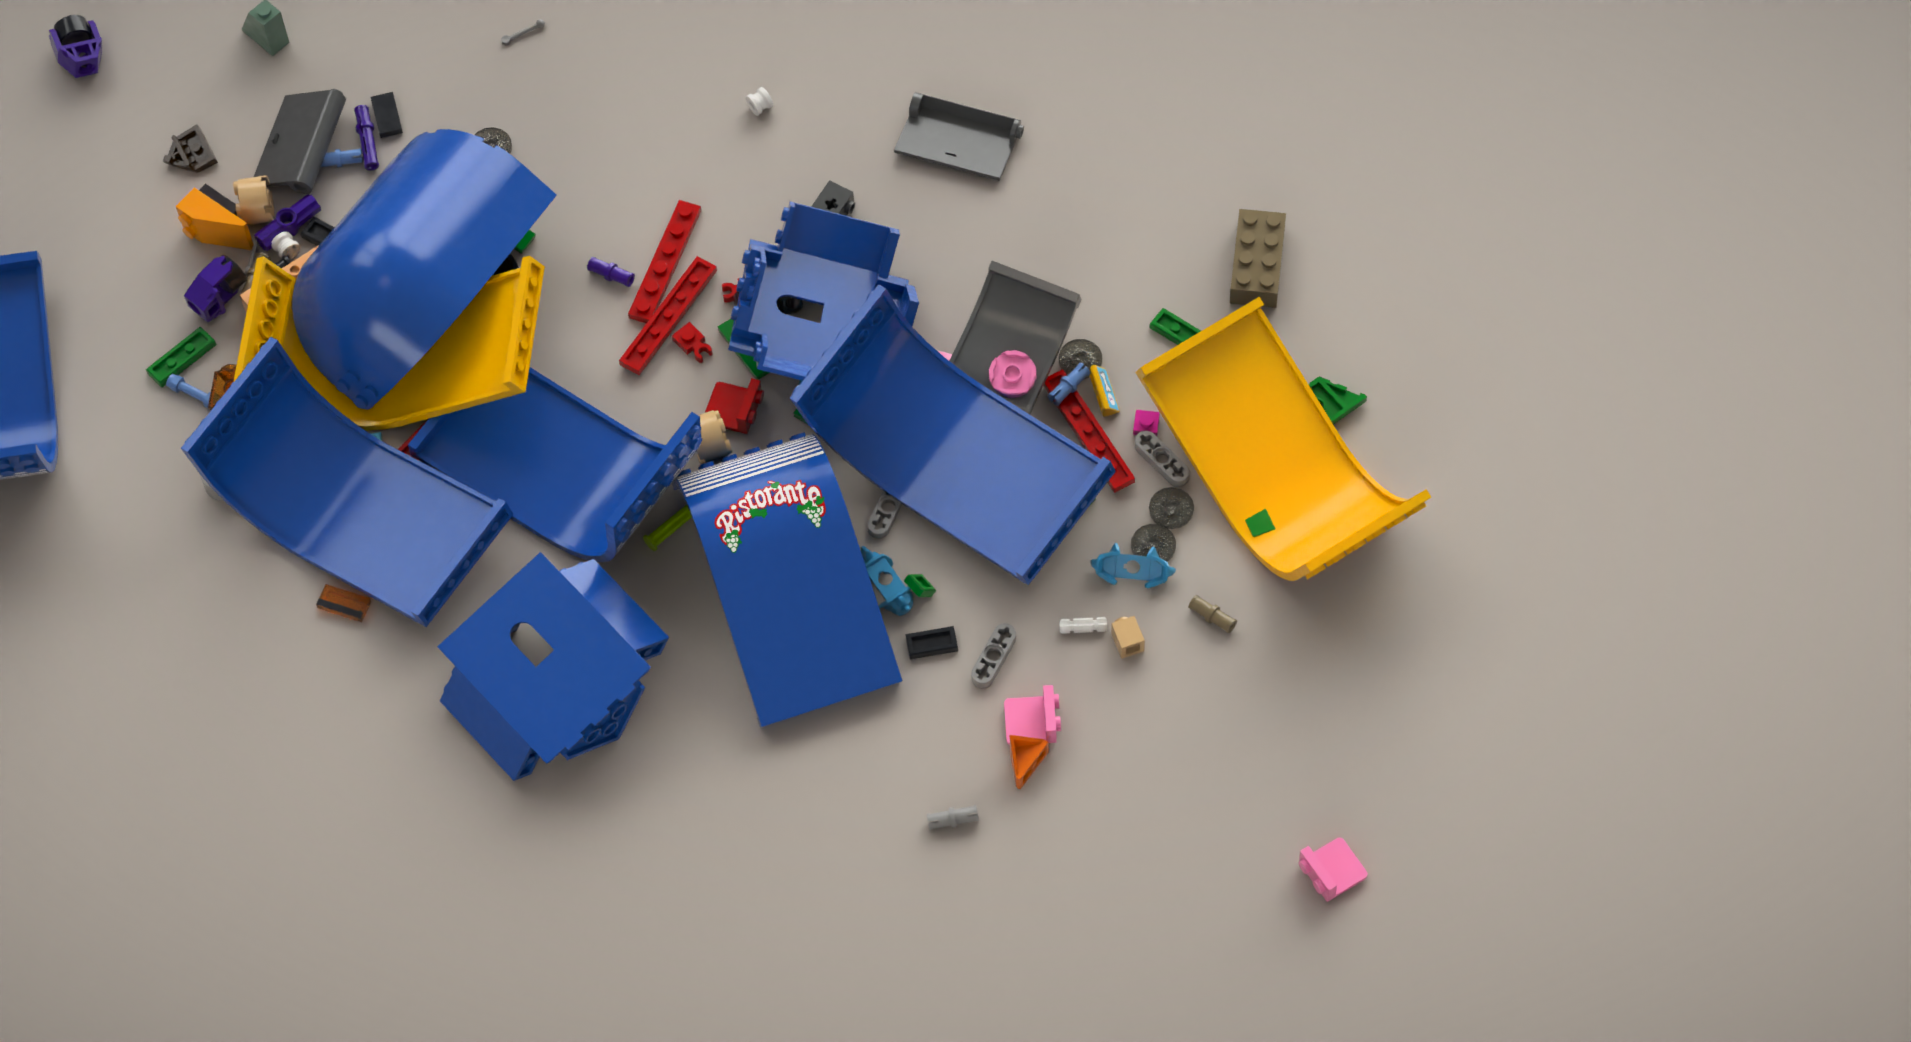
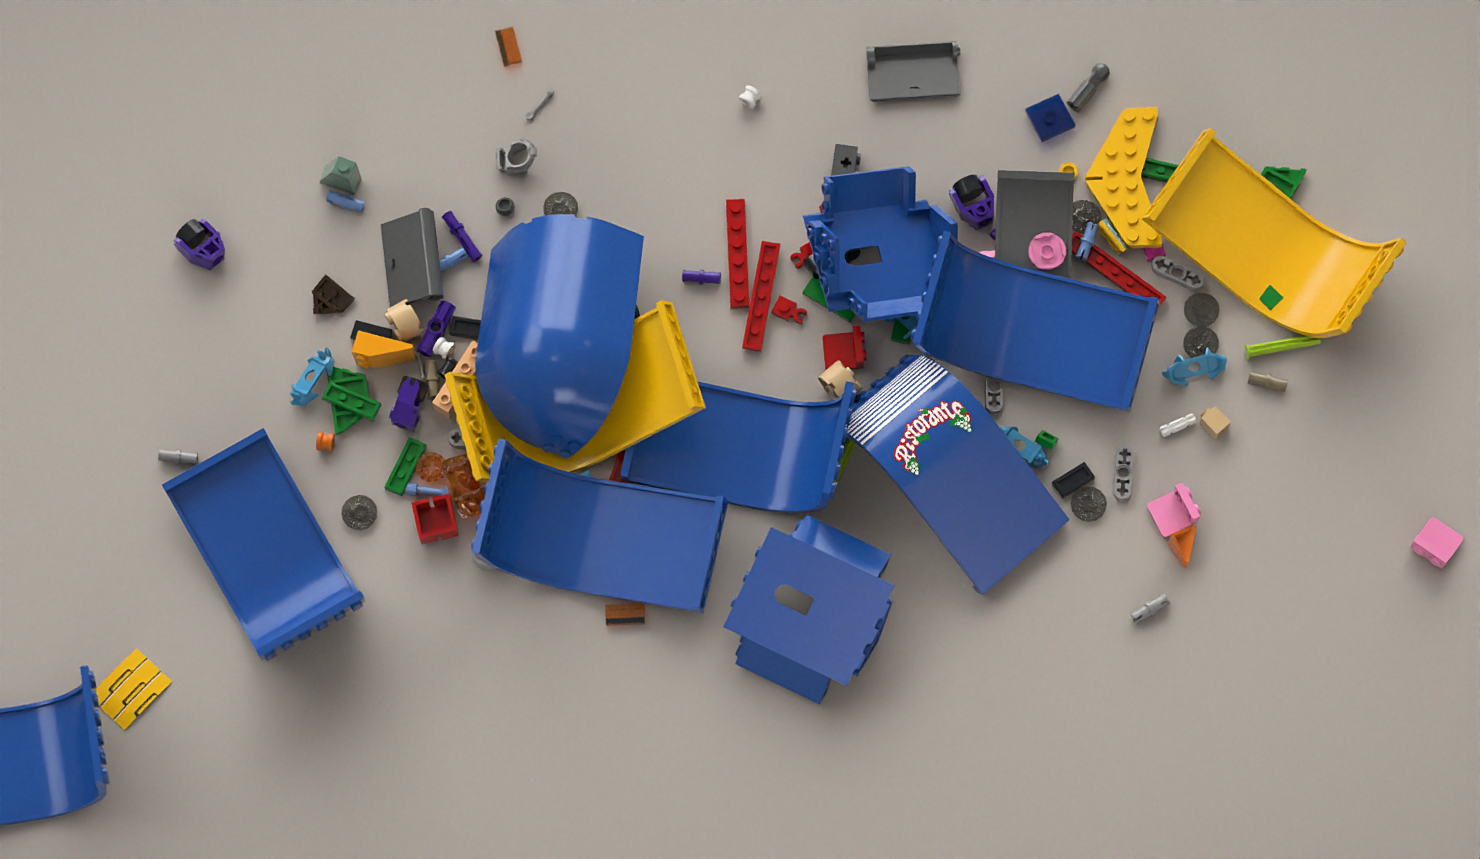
camera: 20 degrees left, 10 degrees up
(105, 386) = (359, 512): none -> clear smoke wheel
(106, 298) = (325, 441): none -> orange wheel
(107, 234) = (303, 389): none -> dark azure piece
(154, 261) = (353, 381): none -> green wing
(154, 264) = (351, 401): none -> green tile
(173, 420) = (435, 521): none -> red piece
(206, 358) = (426, 460): none -> clear orange gear
(258, 57) = (345, 201): none -> medium blue pin
(386, 115) = (467, 211): black tile -> none
(430, 122) = (504, 206): none -> dark grey plate
(457, 72) = (506, 155): none -> light grey piece
(936, 674) = (1088, 504): none -> clear smoke wheel
(958, 284) = (967, 189): none -> dark purple piece
(1088, 306) = (1069, 168): none -> yellow tile
(1092, 239) = (1050, 117): none -> clear blue plate
(1141, 326) = (1121, 166): none -> yellow wing
(1151, 222) = (1086, 90): none -> dark grey piece
(1249, 580) = (1280, 345): none -> lime axle
(1257, 257) = (1180, 88): dark tan brick -> none

